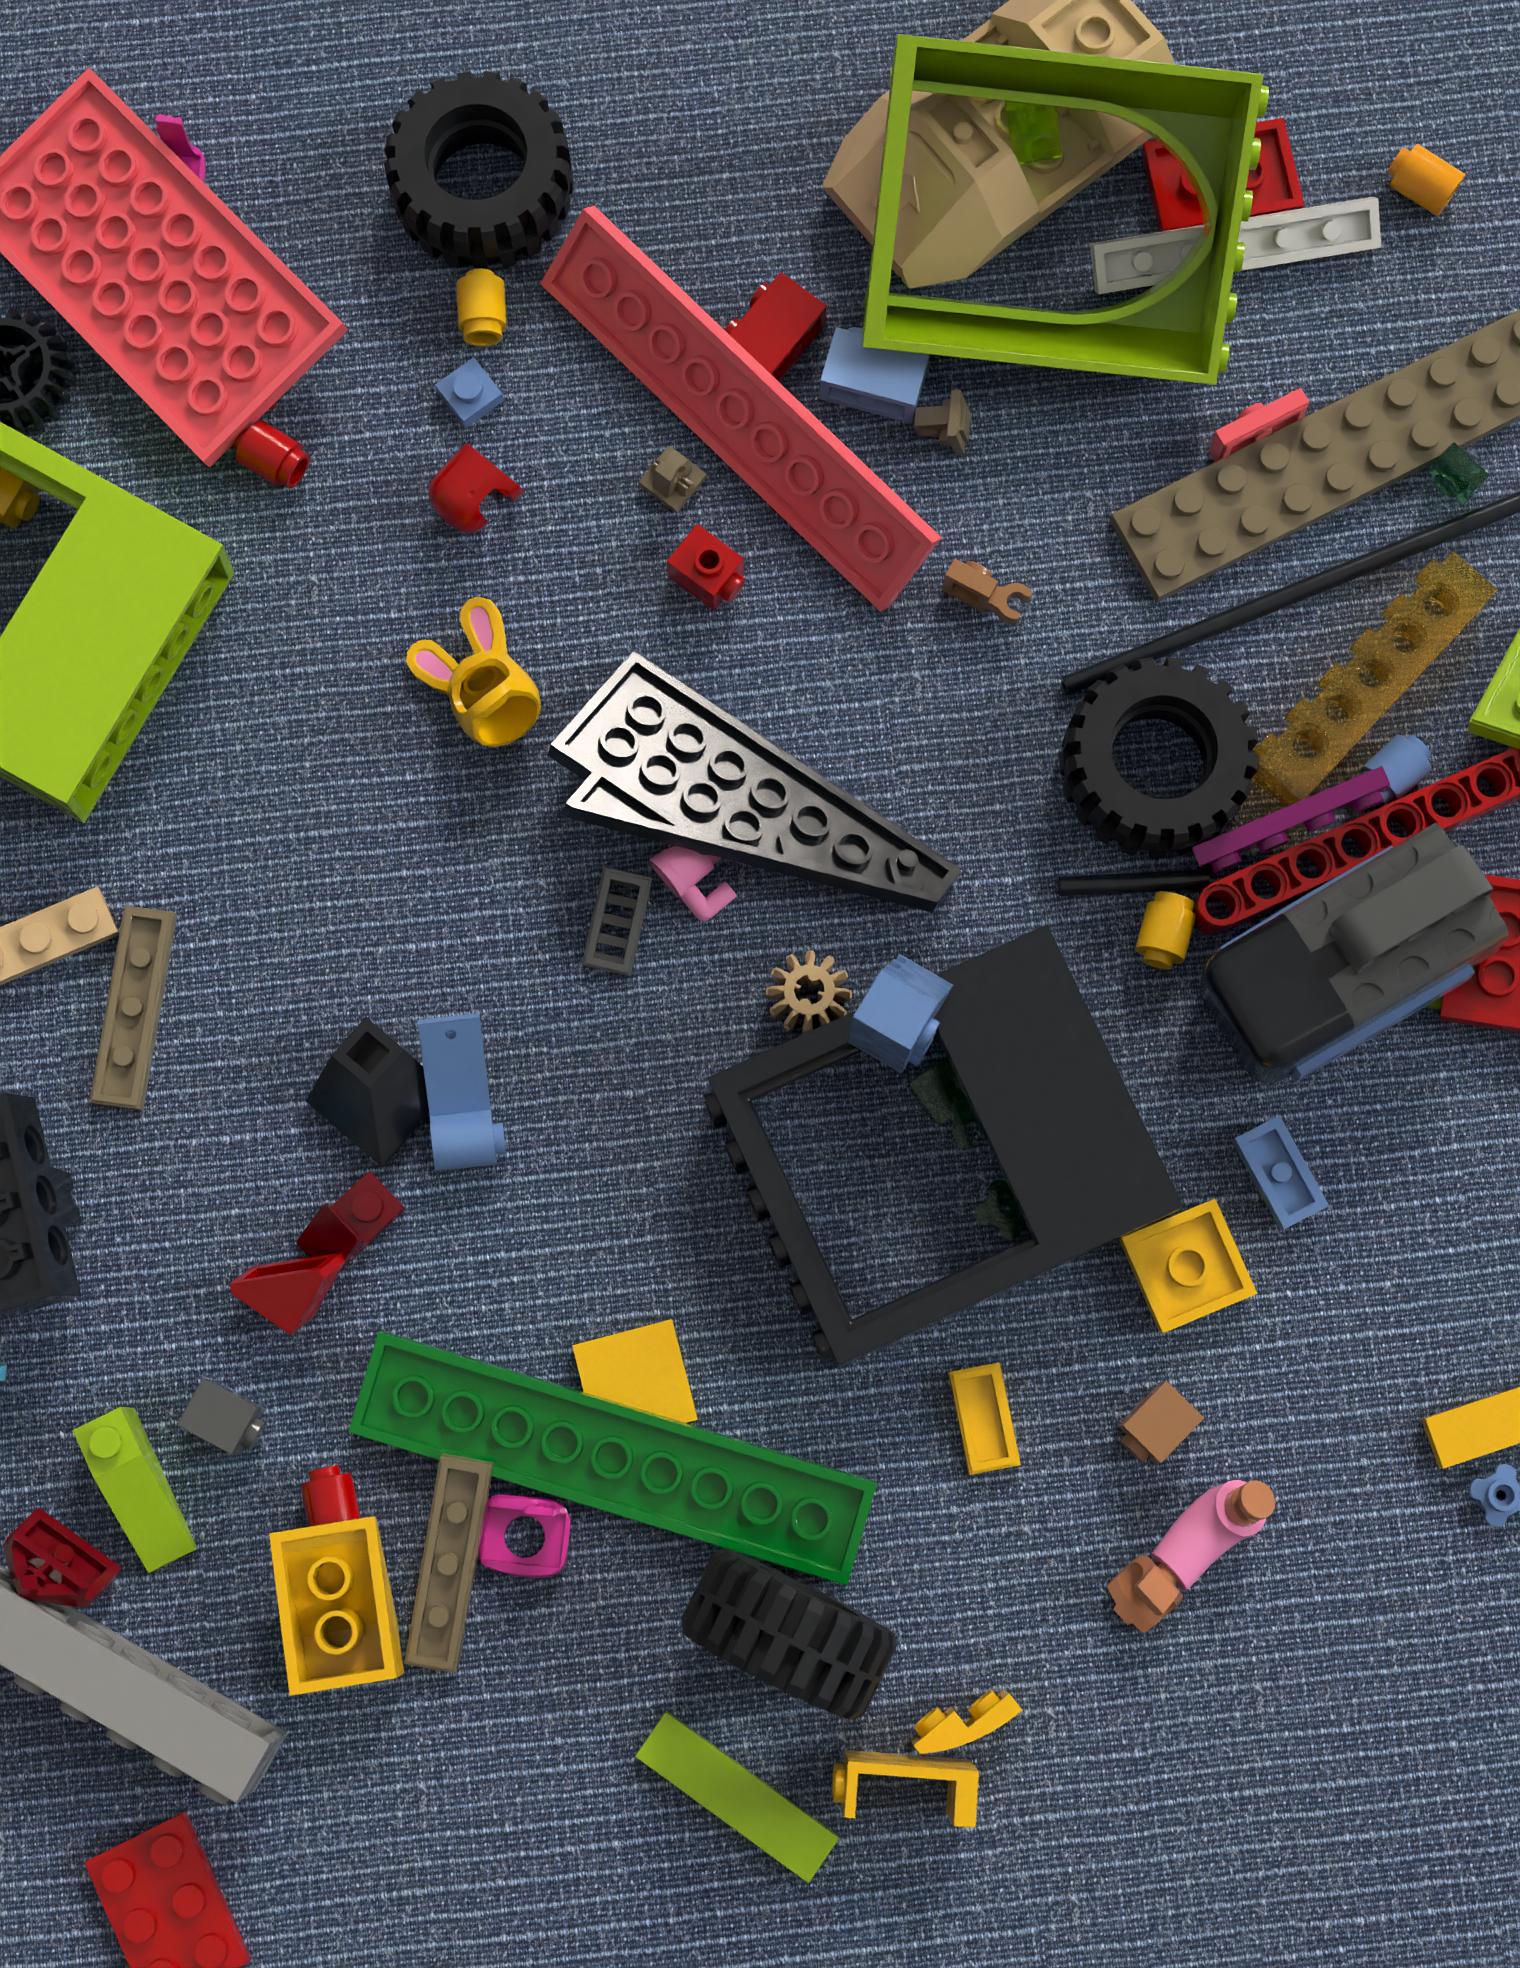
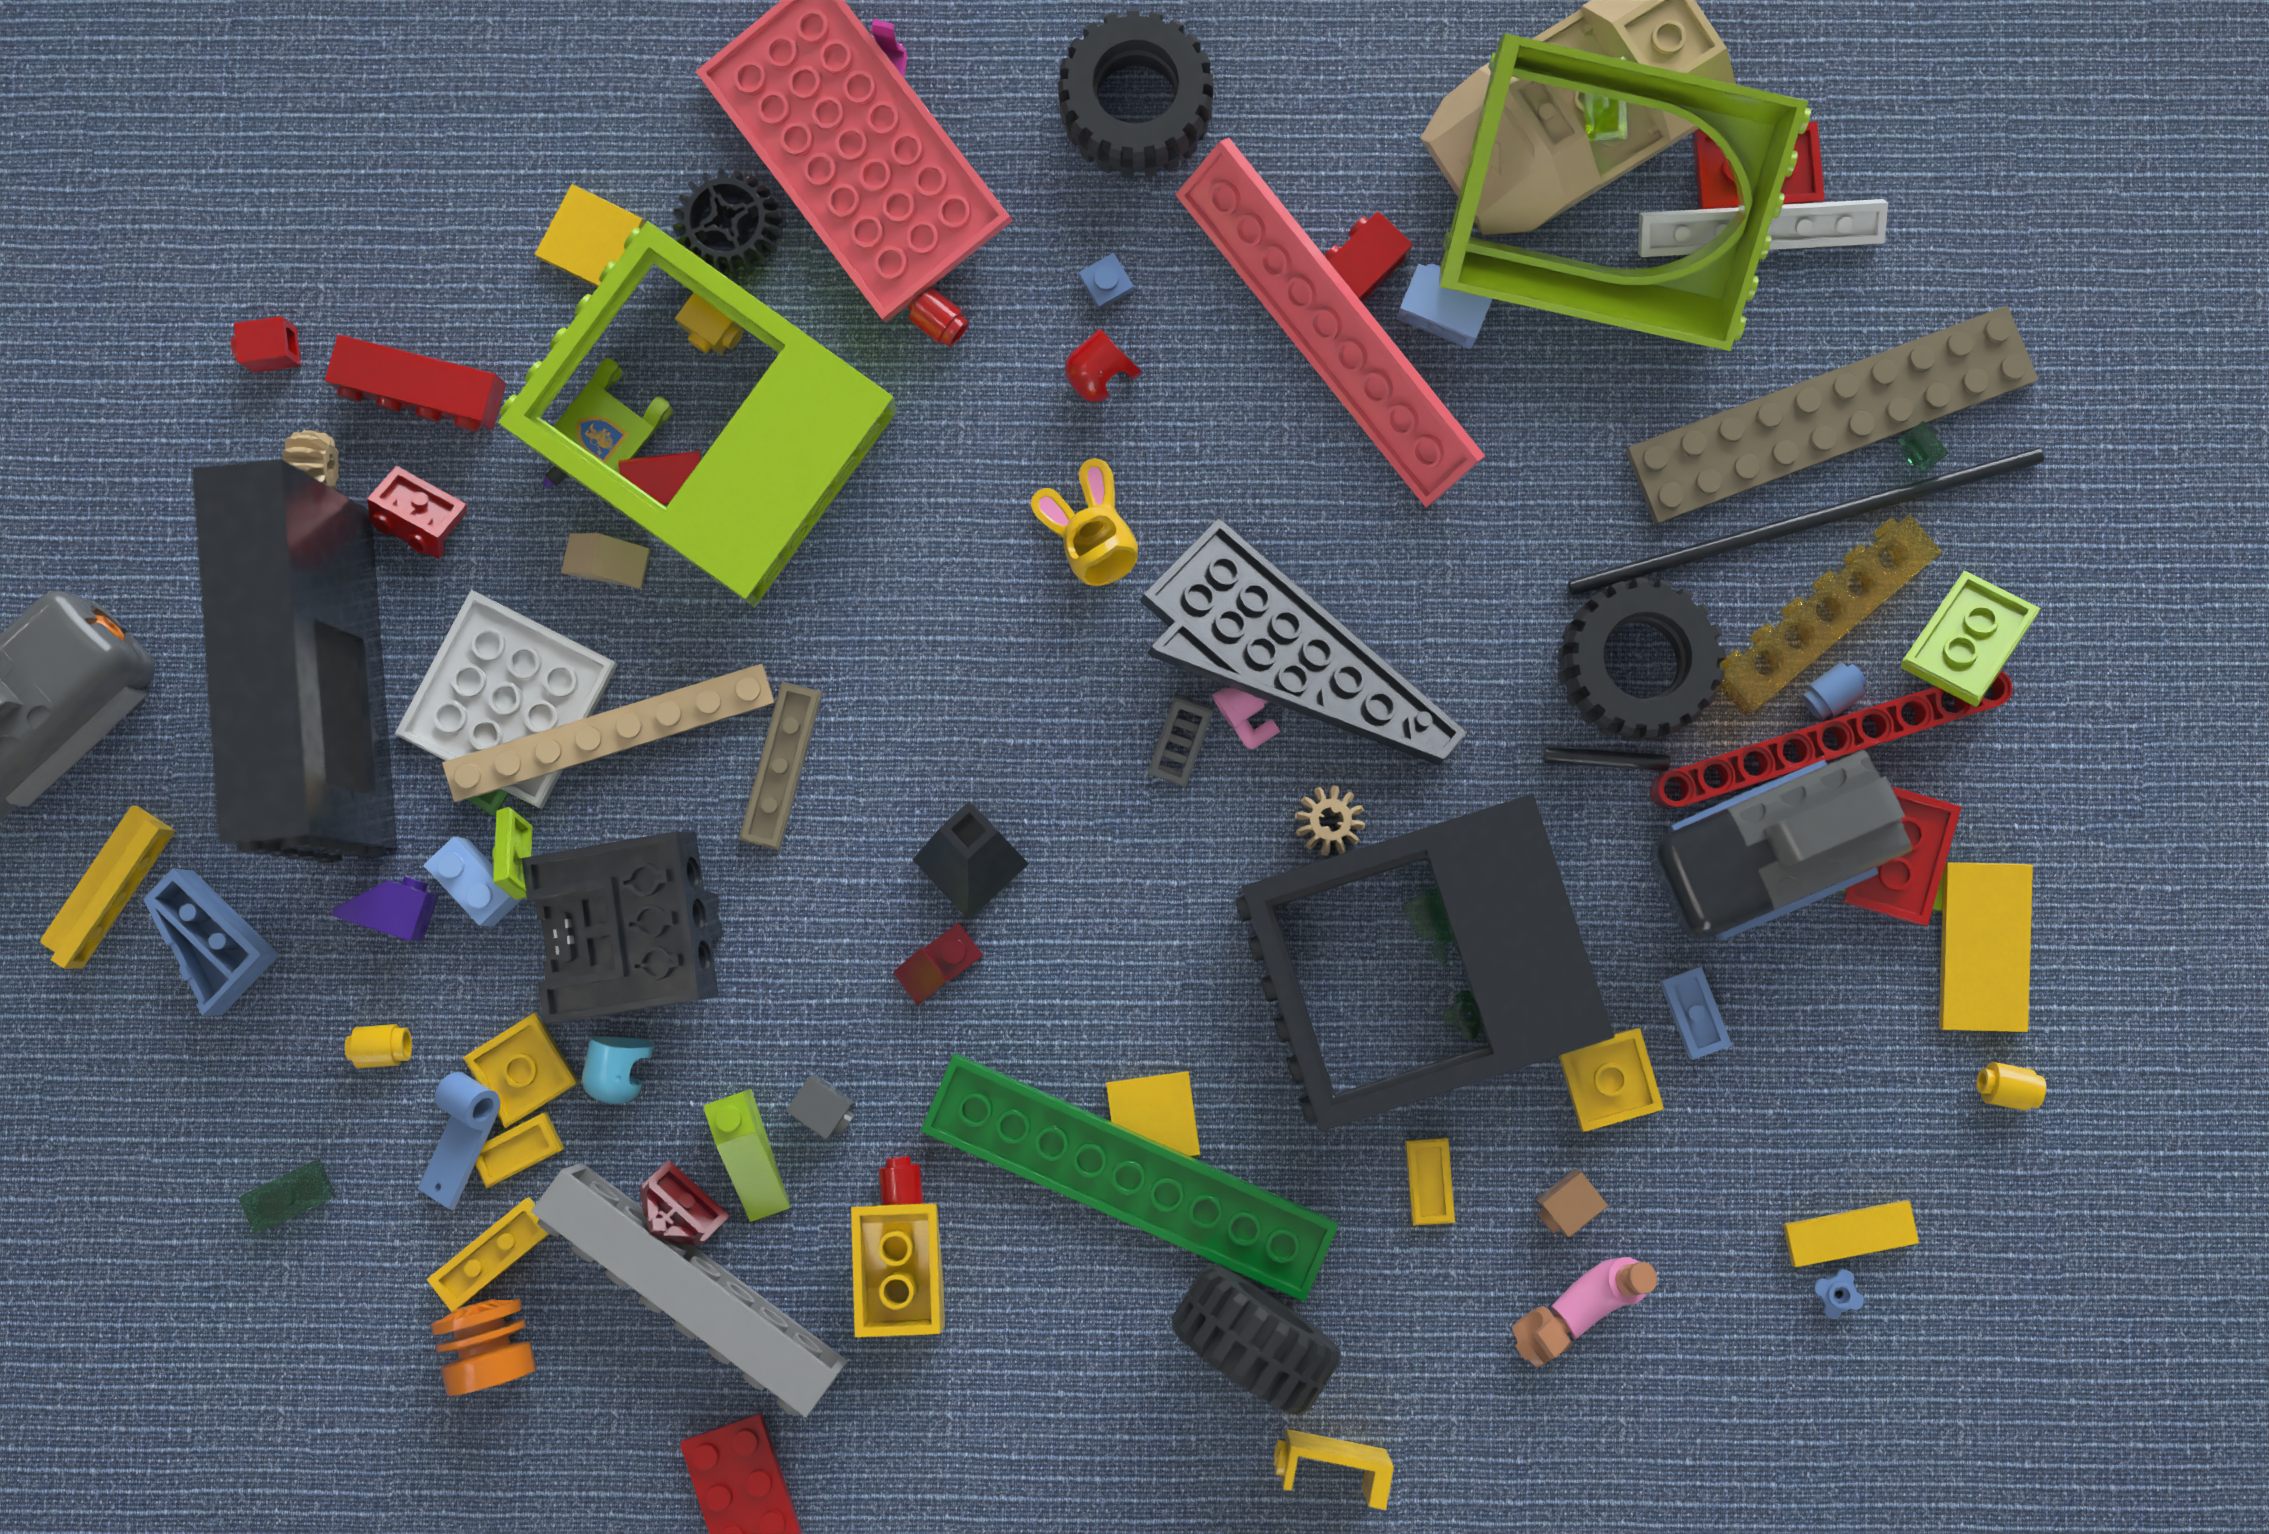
camera: 15 degrees right, 5 degrees up
(288, 1290) = (883, 1010): red slope -> none
(449, 1563) = (989, 1244): dark tan tile -> none
(458, 1093) = (1037, 870): medium blue door -> none
(481, 307) = (1124, 210): yellow brick -> none
(556, 1525) = (1073, 1214): dark pink piece -> none
(672, 479) = (1266, 375): dark tan brick -> none
(707, 568) = (1287, 455): red brick -> none
(737, 1796) = (1197, 1455): lime tile -> none
(899, 1014) = (1407, 856): medium blue wedge -> none
(946, 422) = (1501, 353): dark tan brick -> none
(946, 1730) = (1370, 1426): yellow slope -> none
(976, 587) = (1507, 496): medium nougat plate -> none
(1166, 930) = (1628, 802): yellow brick -> none
(1258, 423) = (1759, 384): coral plate -> none
(1311, 812) = (1762, 722): magenta plate -> none
(1425, 178) = (1930, 187): light orange brick -> none

